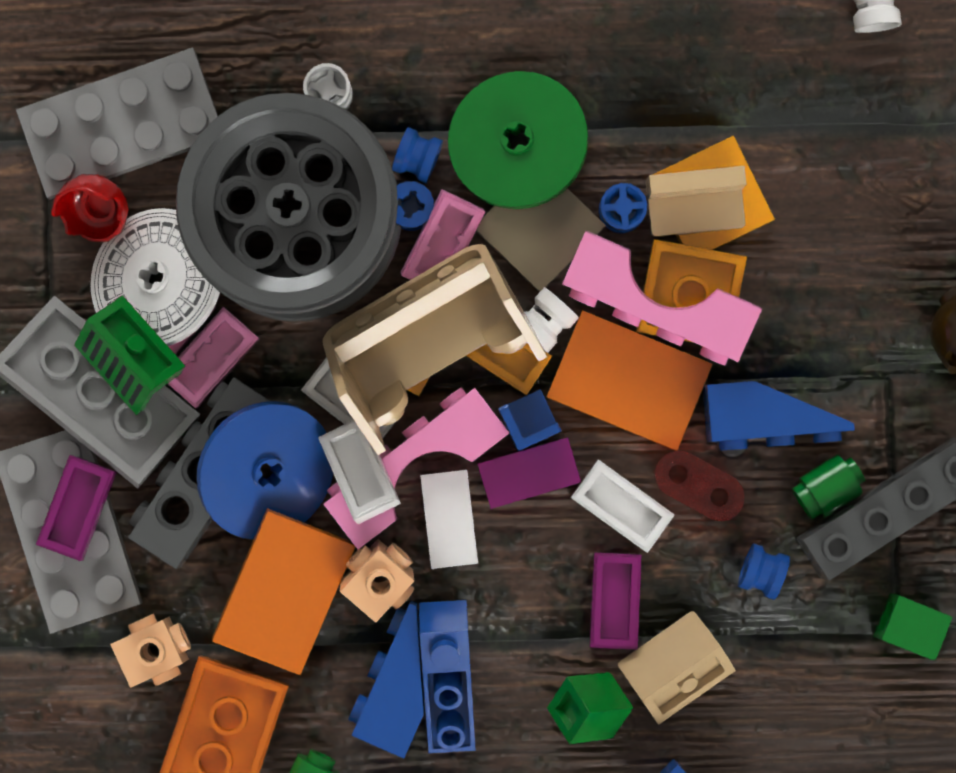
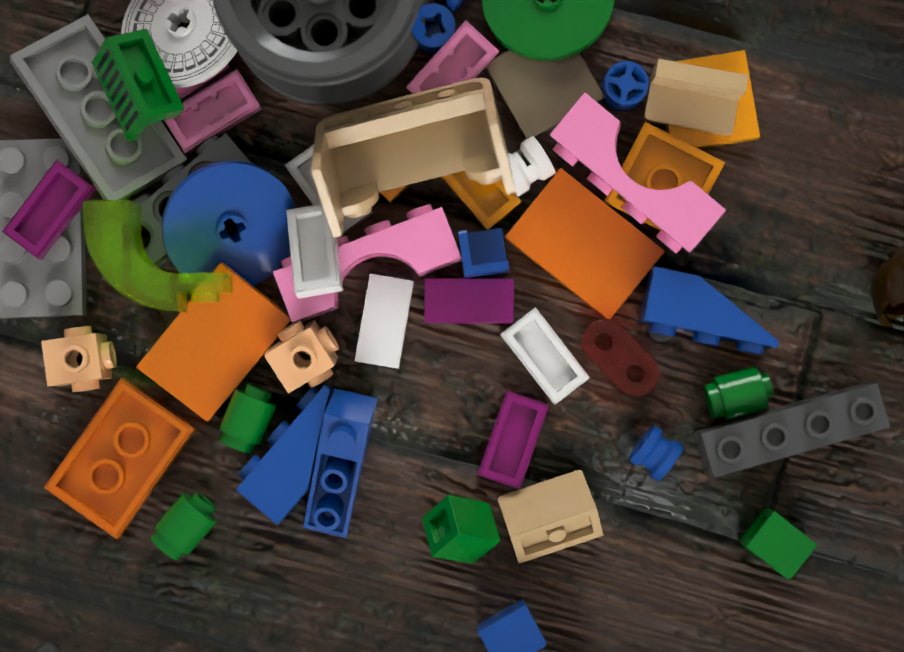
camera: 25 degrees right, 0 degrees up
(170, 539) = (117, 249): none -> clear neon green arch
(340, 660) = (247, 418): none -> green brick

